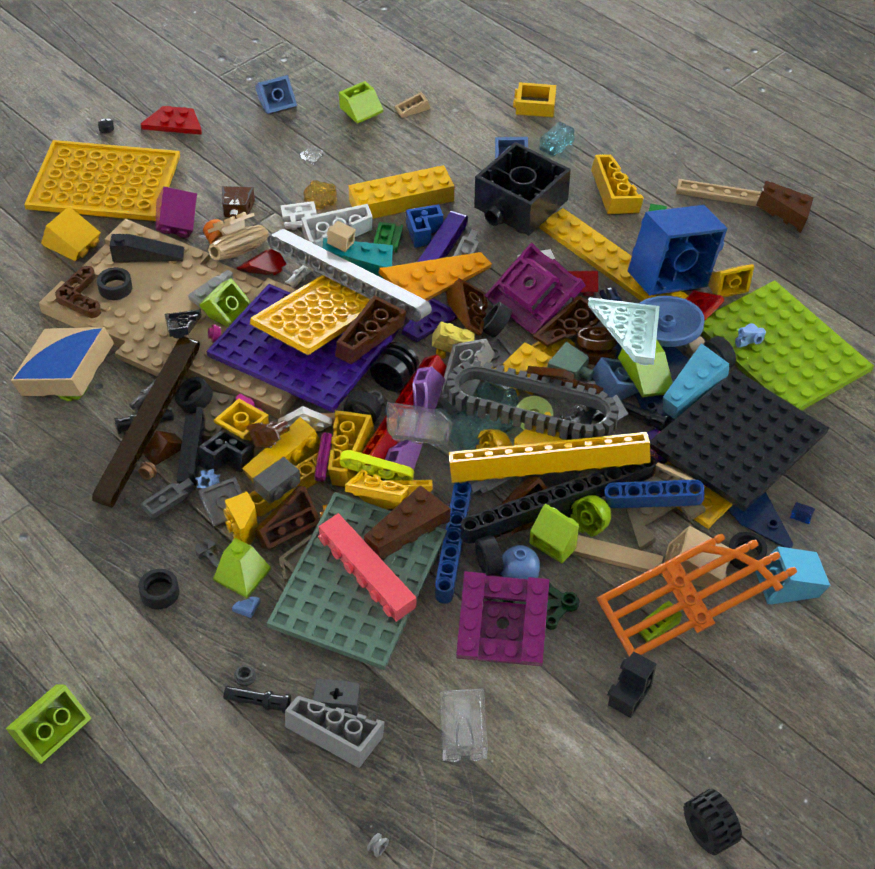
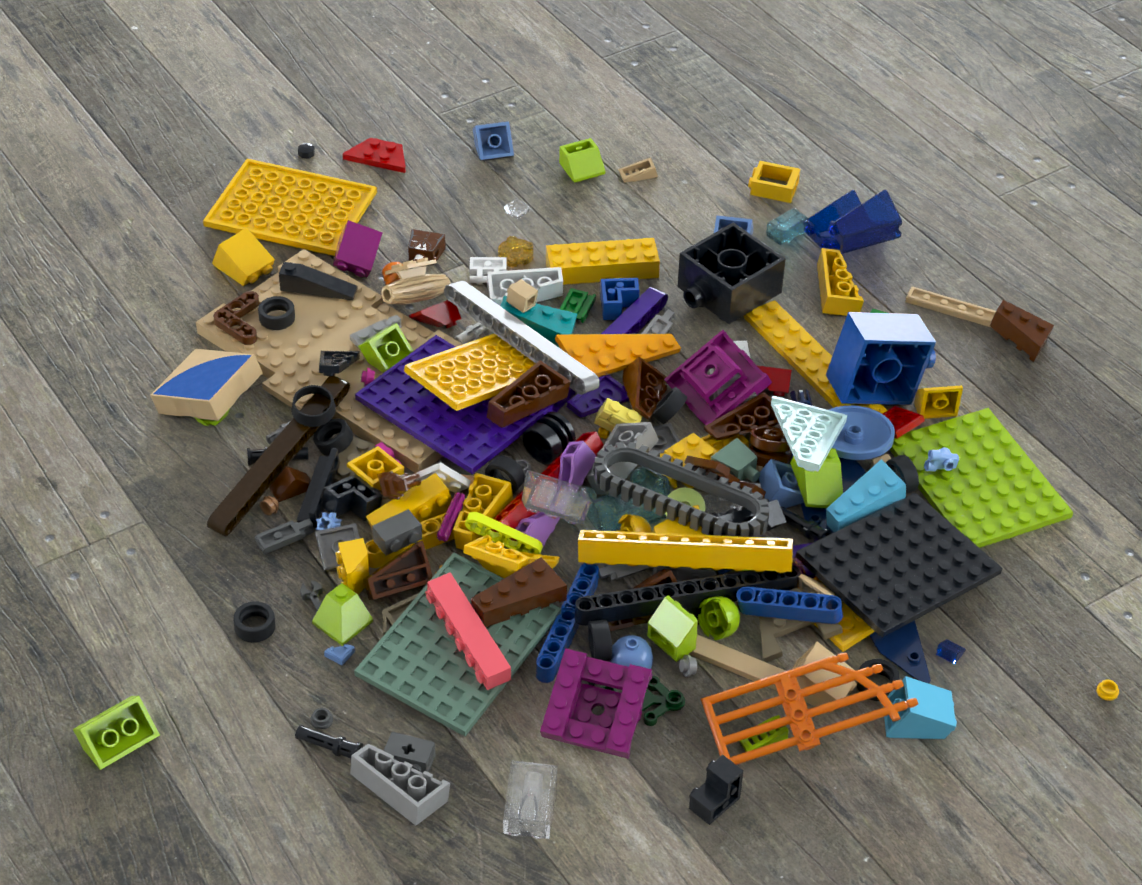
camera: 10 degrees right, 5 degrees down
(175, 382) = (313, 420): none -> black tyre
(574, 565) = (688, 665): none -> light grey plate
(614, 134) = (852, 225): none -> clear blue windscreen

